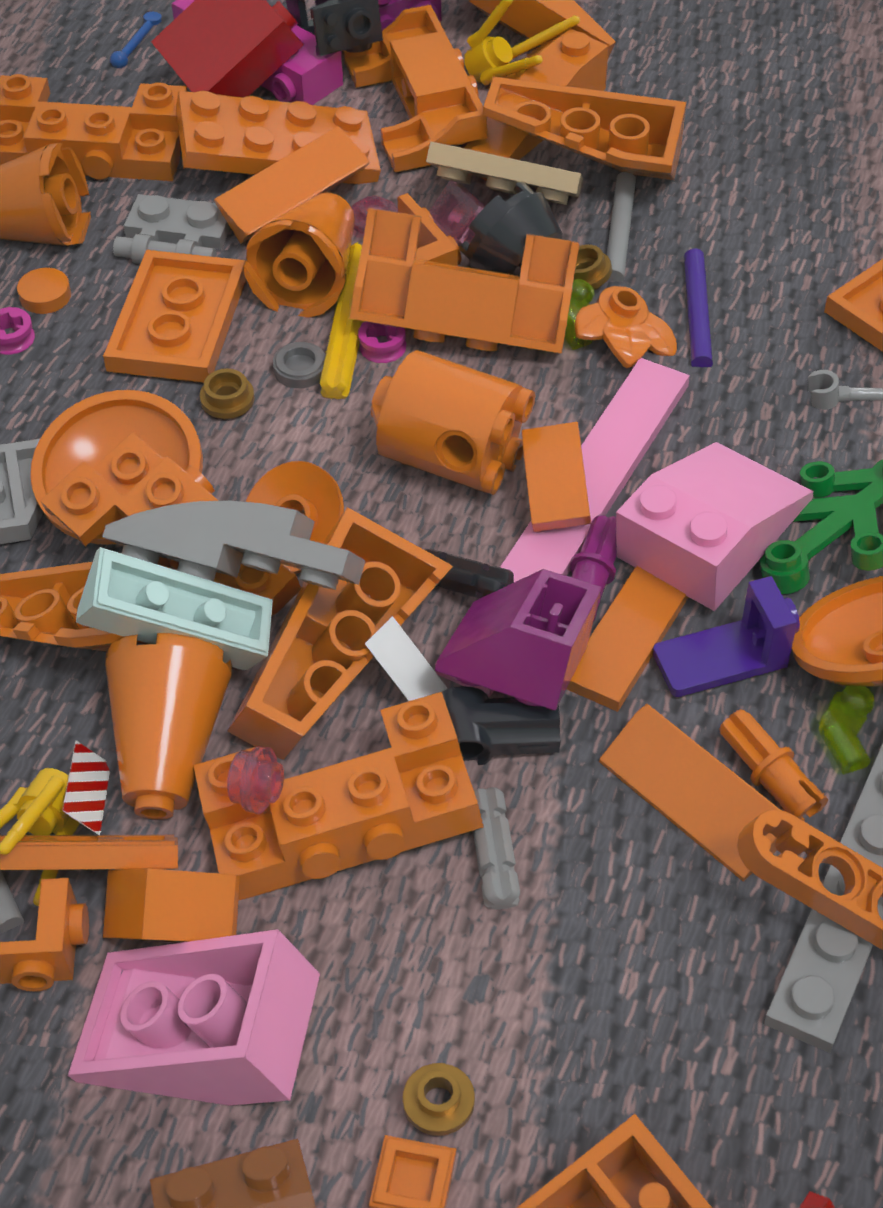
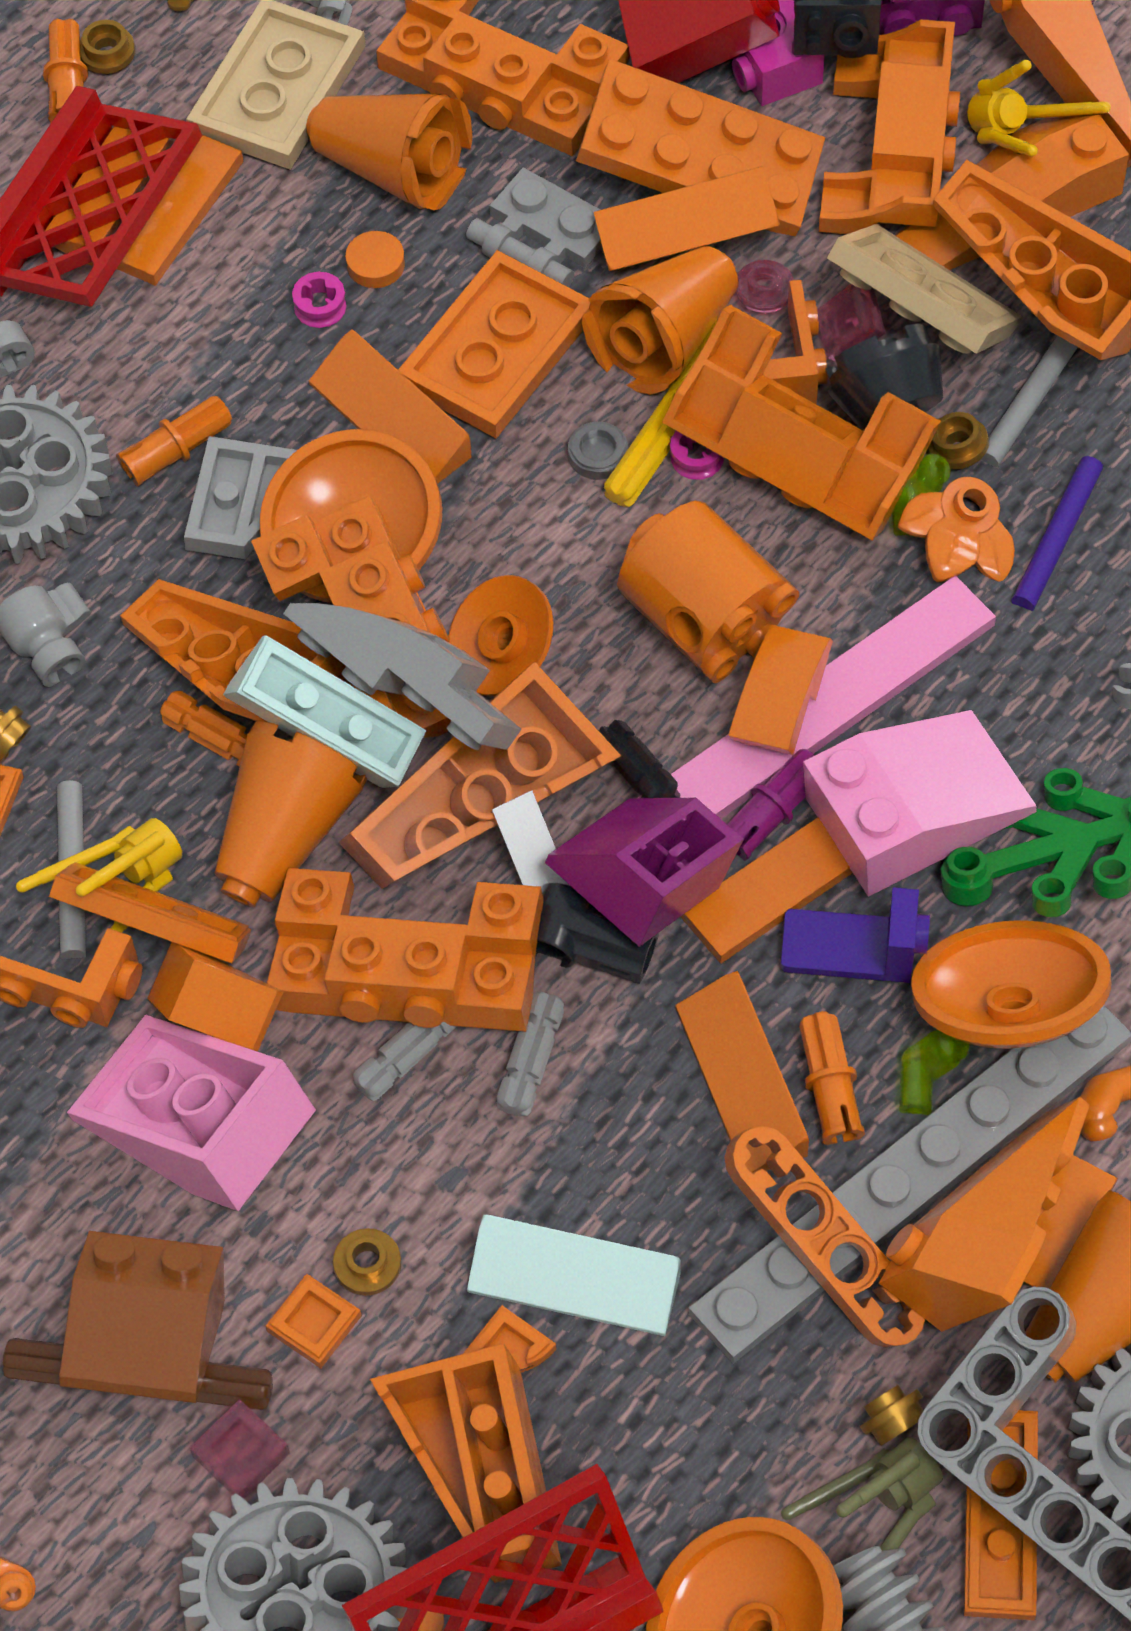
camera: 25 degrees right, 10 degrees up
(58, 681) = (205, 725): none -> orange axle
(74, 372) = (384, 400): none -> orange slope
(86, 788) = (186, 851): sticker -> none
(226, 394) = (502, 446): pearl gold plate -> none
(255, 779) = (326, 910): clear pink plate -> none
(371, 899) = (397, 1058): none -> light grey axle
(609, 1110) = (521, 1339): none -> orange tile
(642, 1029) = (574, 1274): none -> light aqua slope

